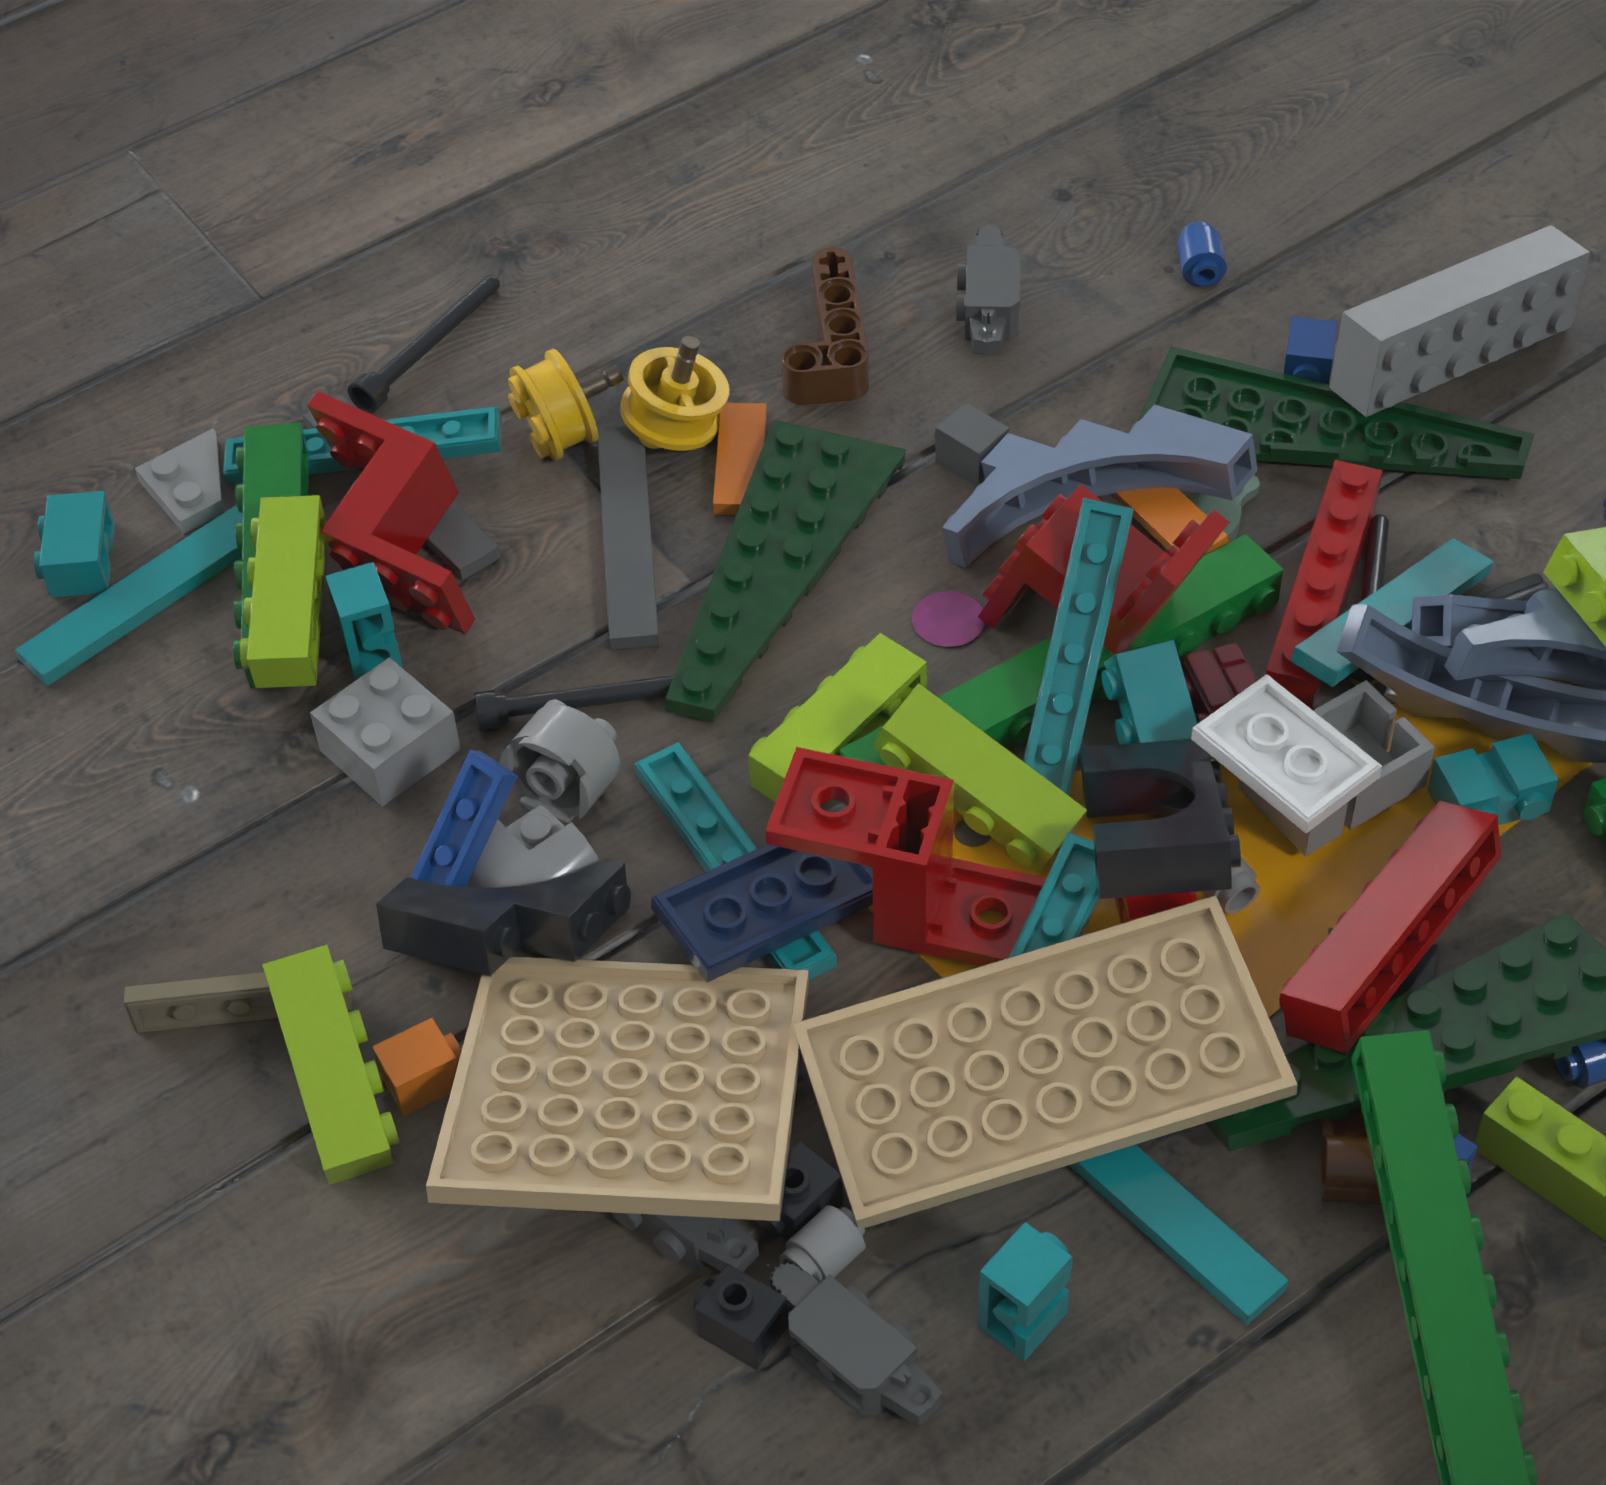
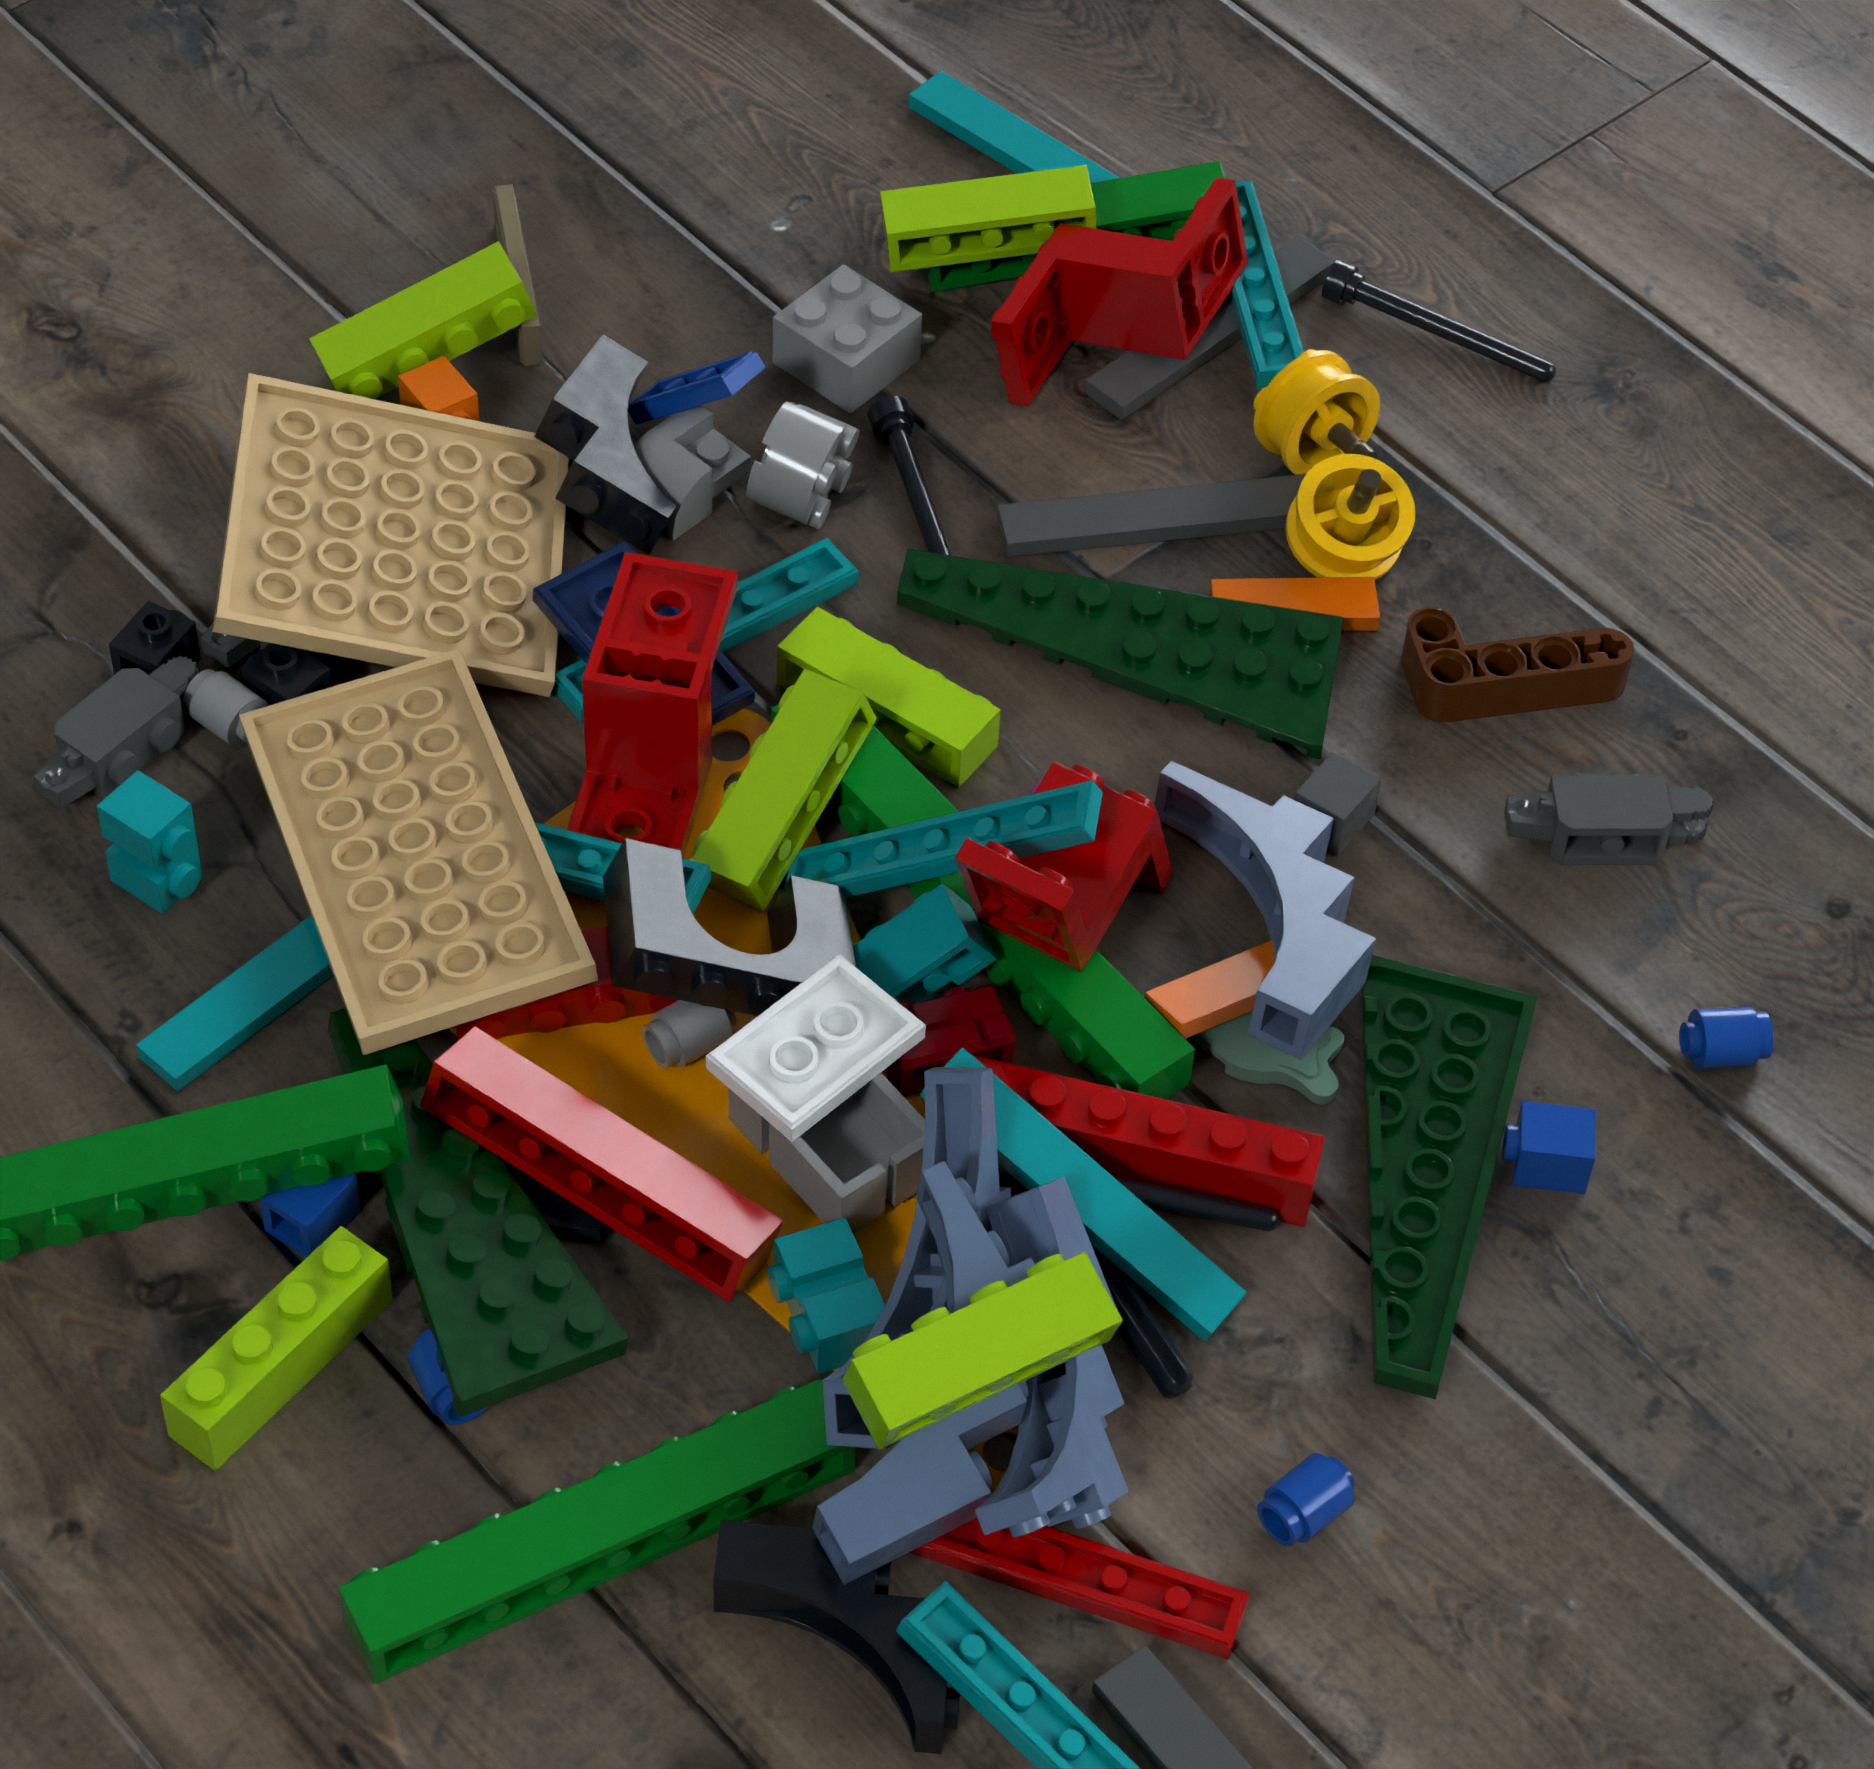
camera: 80 degrees right, 0 degrees up
(75, 544) = (1083, 88): teal brick -> none
(187, 481) = (1197, 146): light grey wing -> none
(363, 618) = (970, 287): teal brick -> none
(1457, 320) = (1606, 1283): light grey brick -> none

